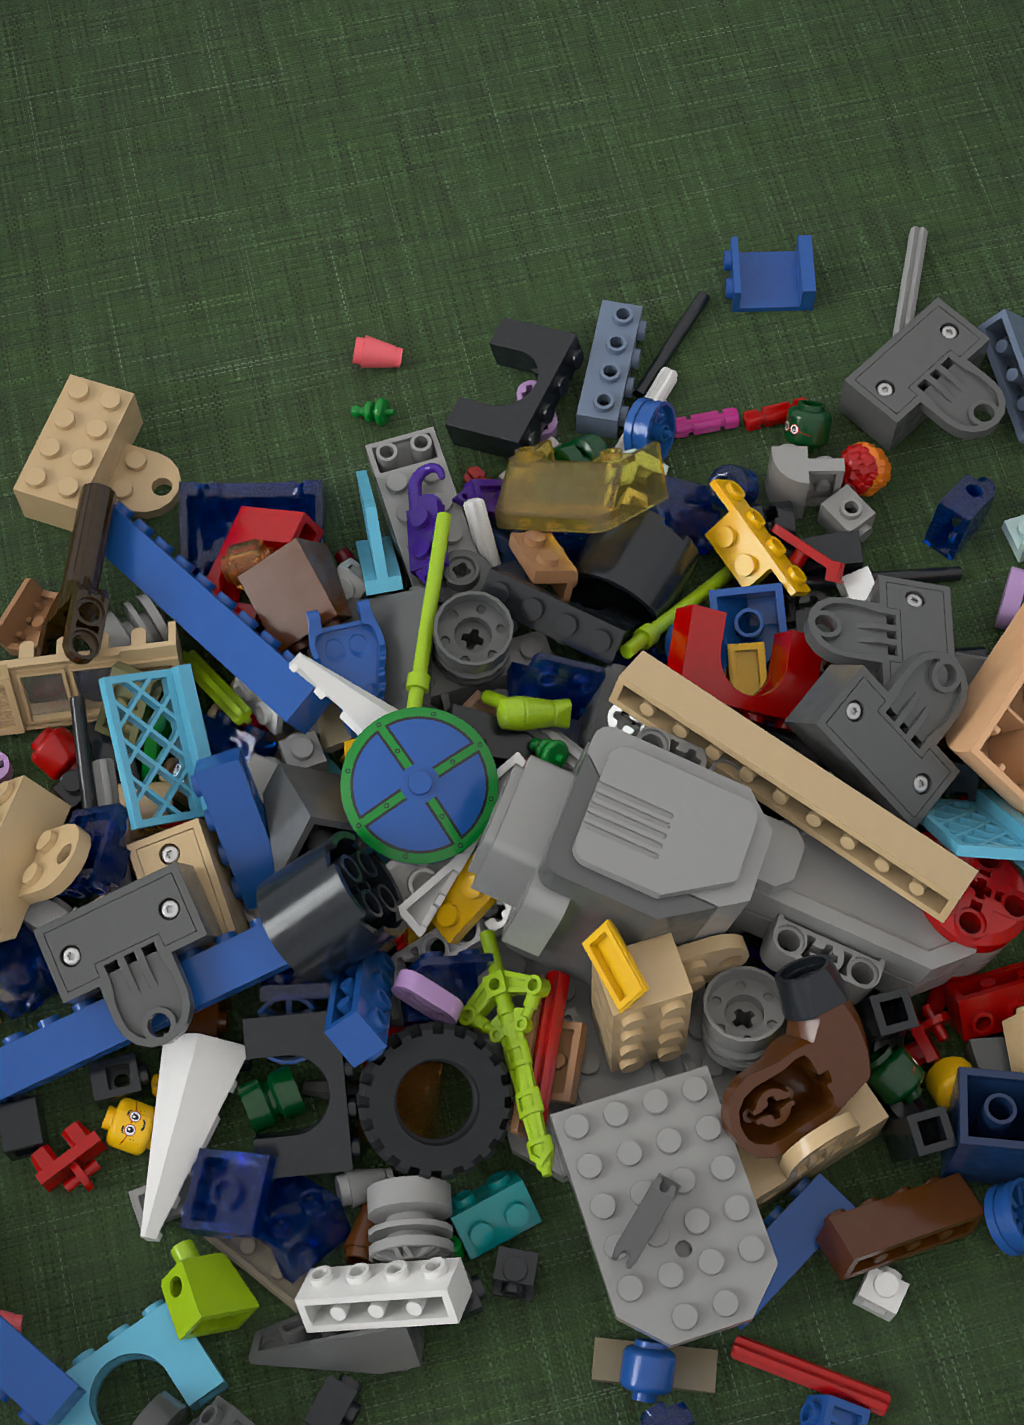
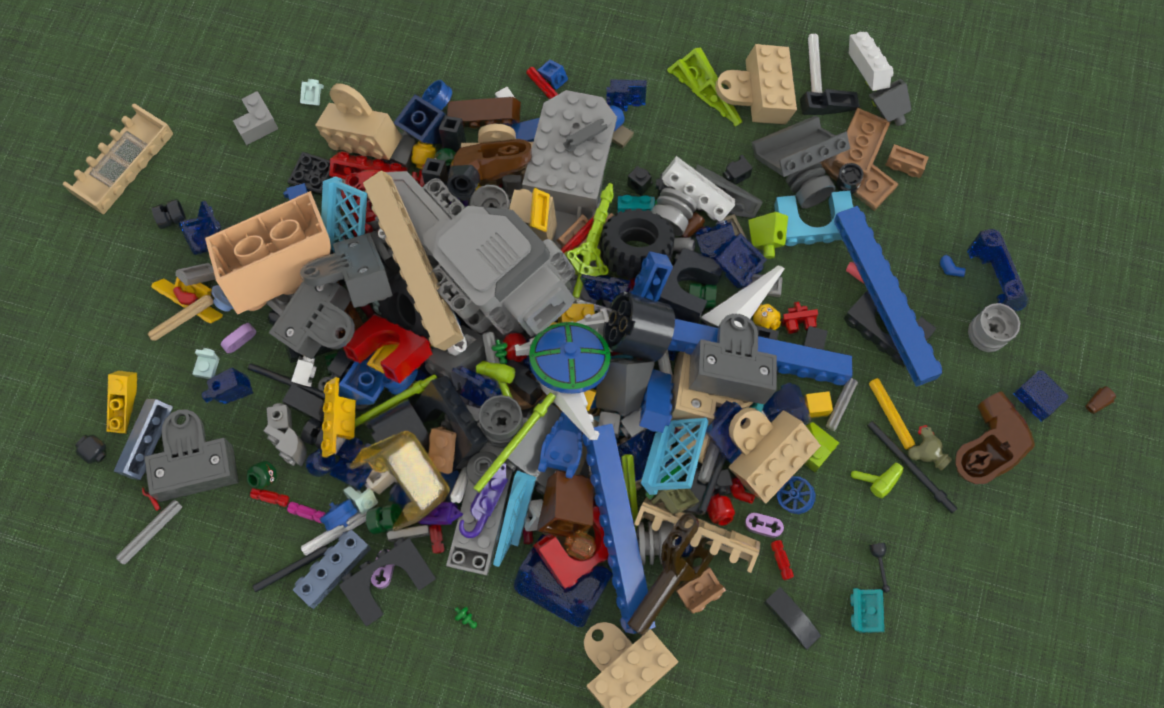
camera: 150 degrees left, 5 degrees up
(376, 353) = (443, 652): coral cone -> none
(427, 997) = (612, 274): lavender beam -> none
(771, 278) = (212, 577): blue panel -> none
(803, 551) = (314, 403): red piece -> none
(865, 468) = (253, 437): red piece -> none

